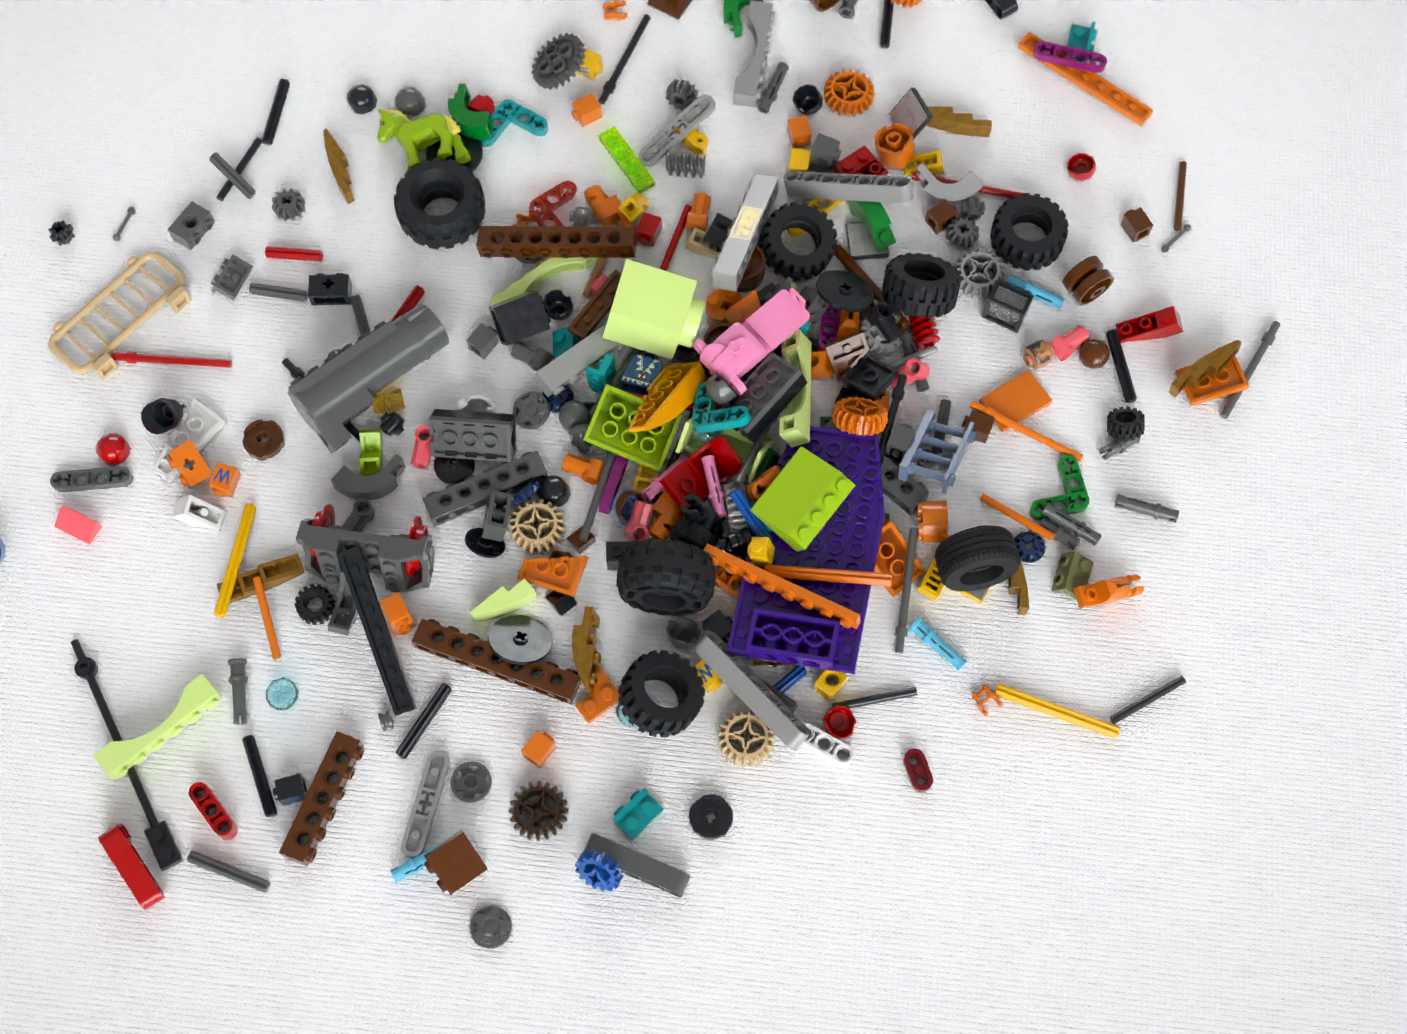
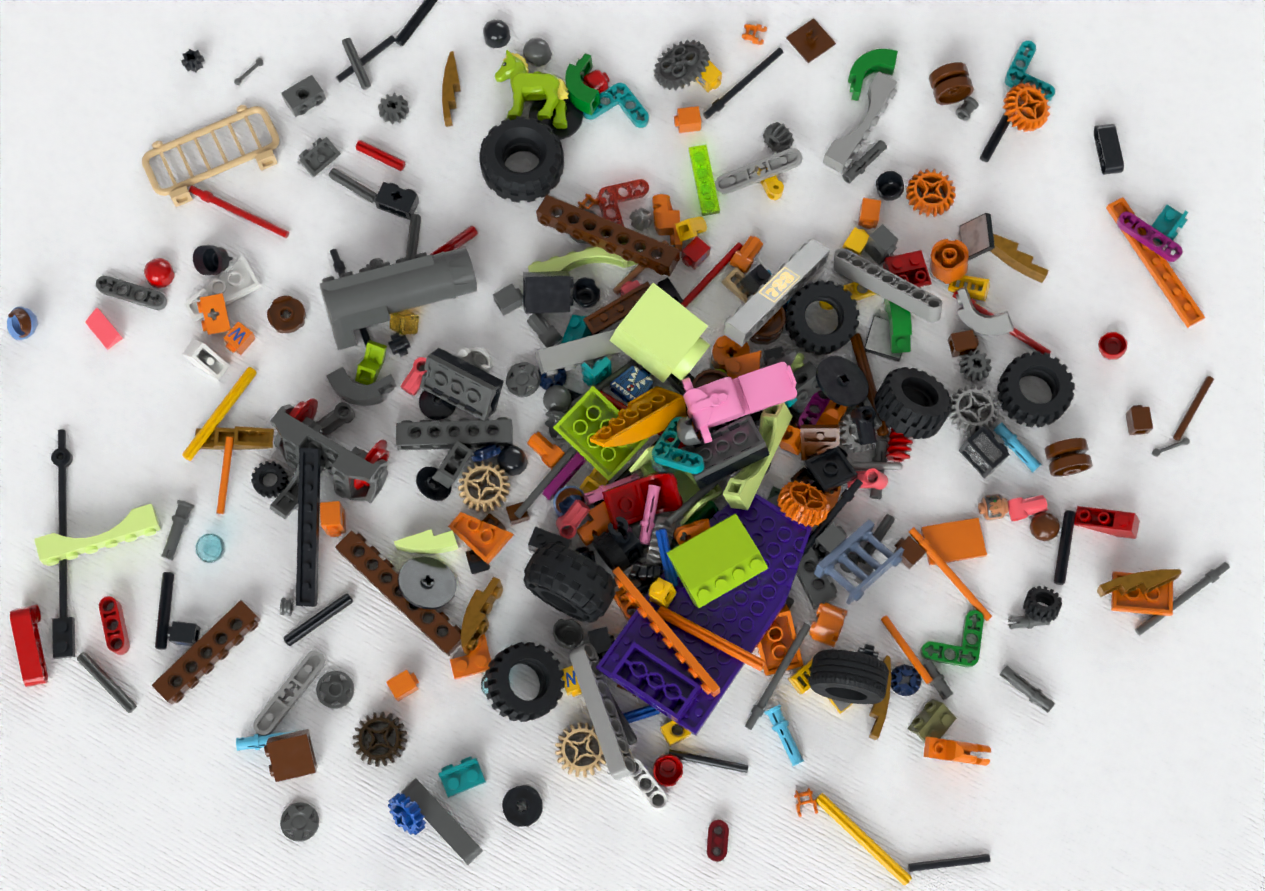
camera: 20 degrees right, 5 degrees up
(685, 164) = (753, 205): dark grey piece -> none
(973, 208) = (995, 346): dark grey gear -> none
(1078, 528) = (957, 683): dark grey pin -> none

